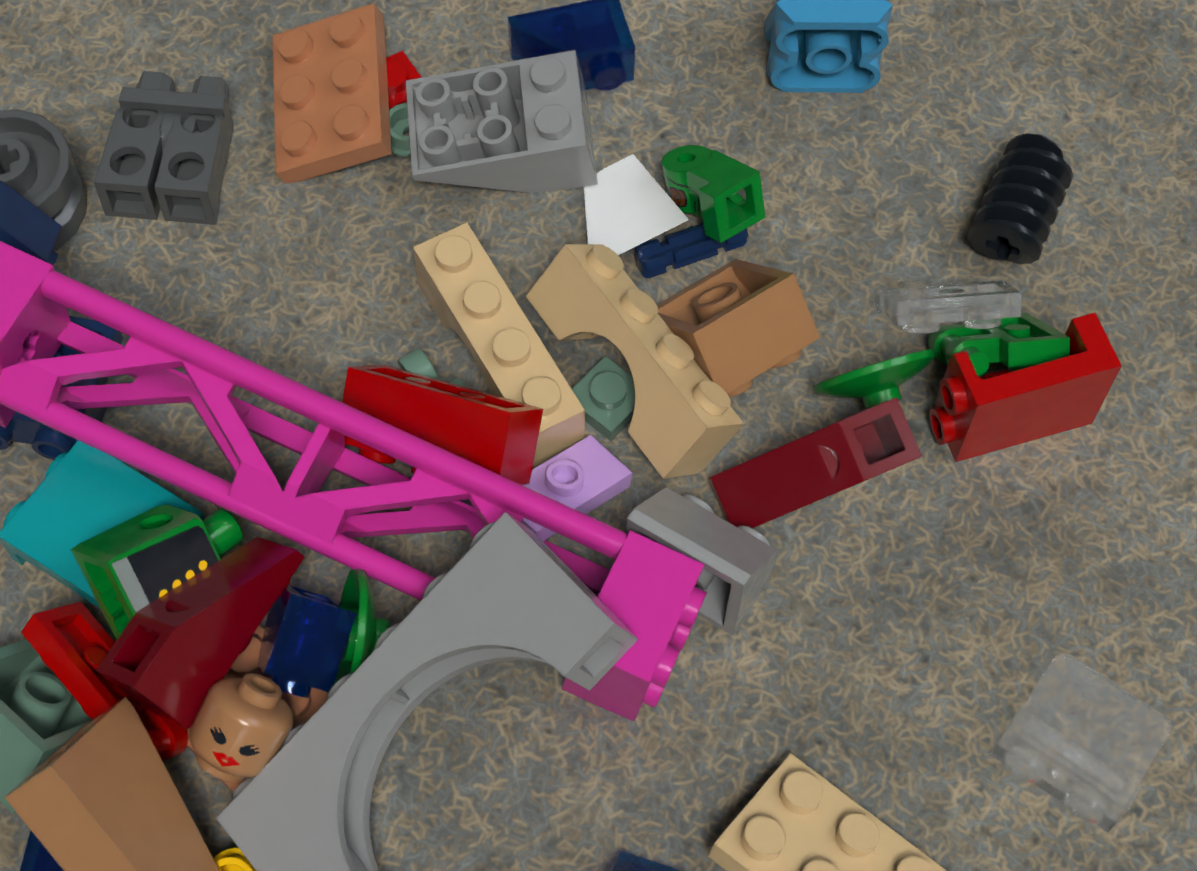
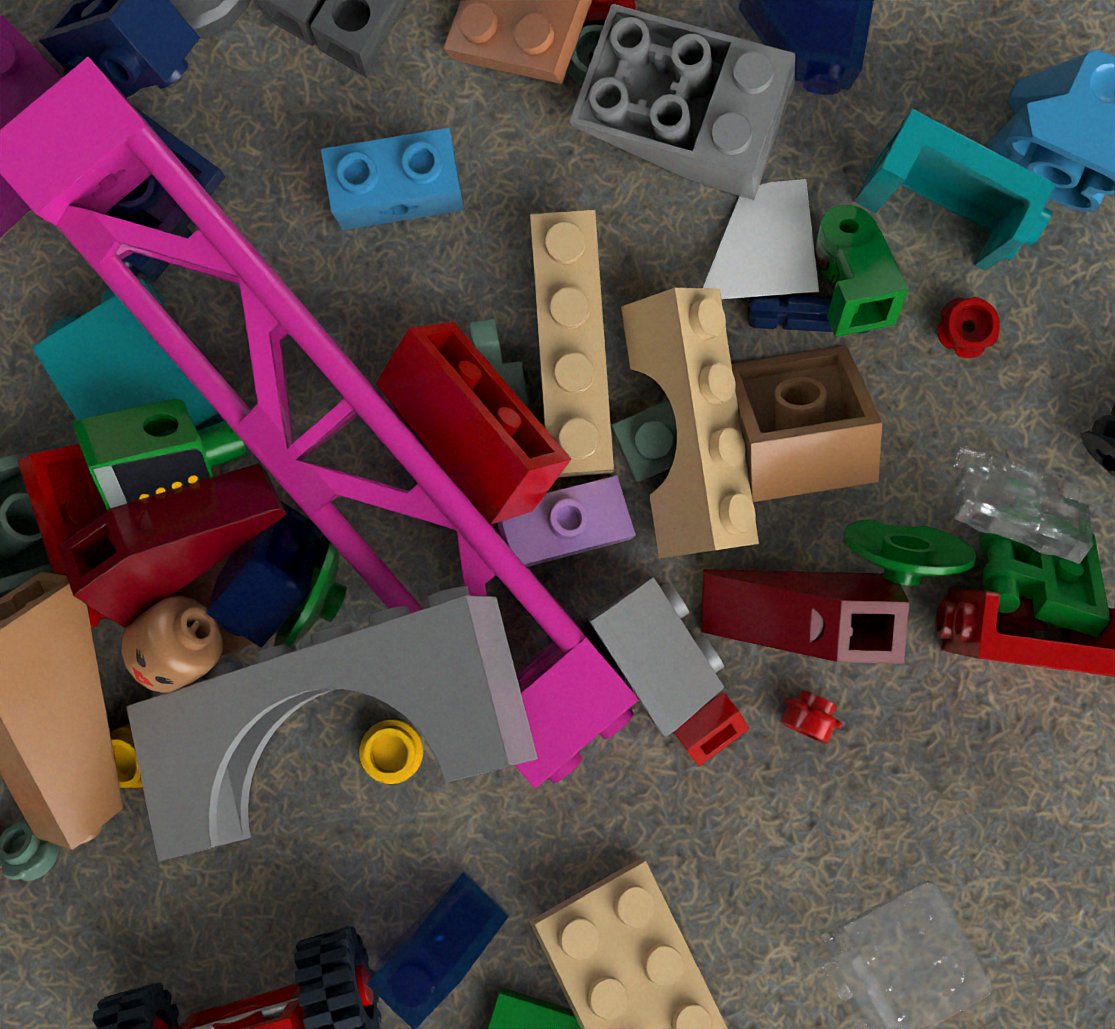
camera: 25 degrees right, 25 degrees up
(278, 279) = (393, 179): none -> dark azure brick
(496, 765) = (391, 751): none -> yellow plate
(761, 90) = (963, 180): none -> teal panel
(786, 604) = (711, 729): none -> red plate
(828, 188) = (982, 317): none -> red plate
(875, 552) = (811, 716): none -> red plate

